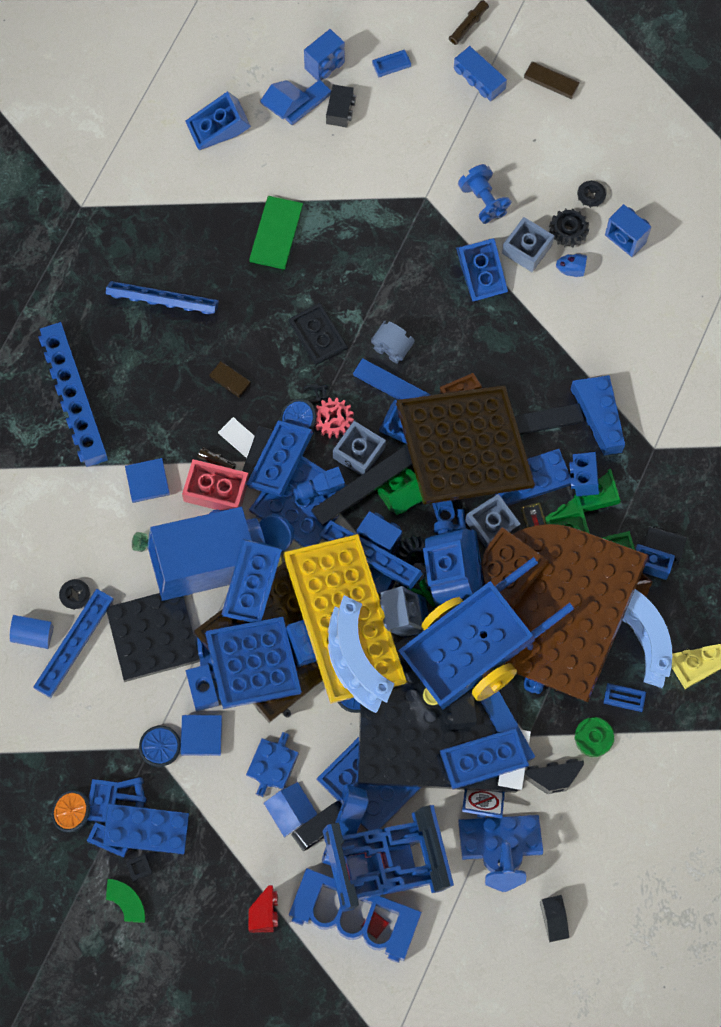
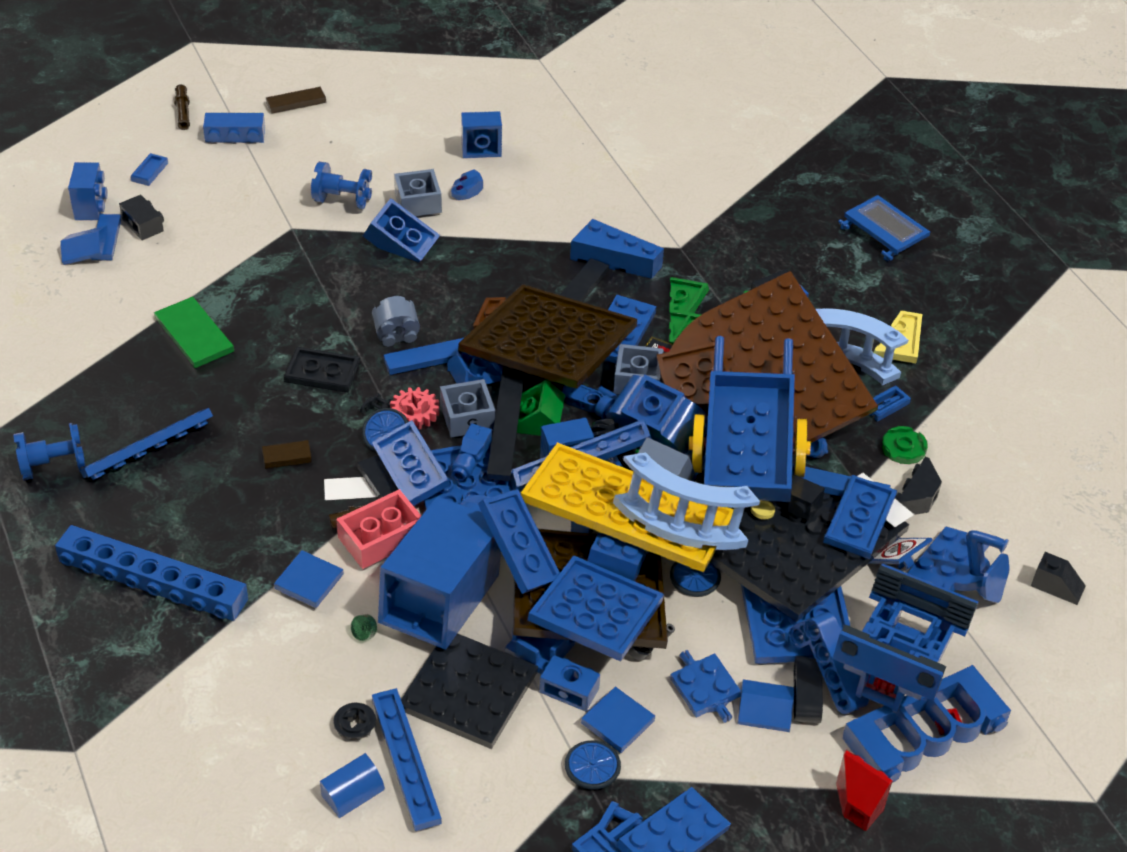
camera: 50 degrees left, 25 degrees down
(90, 249) = (39, 453): none -> blue piece
(218, 121) = (42, 294): blue slope -> none
(572, 219) = (437, 160): black gear -> none
(584, 474) = (660, 289): blue brick -> none
(593, 187) = (414, 137): black gear -> none

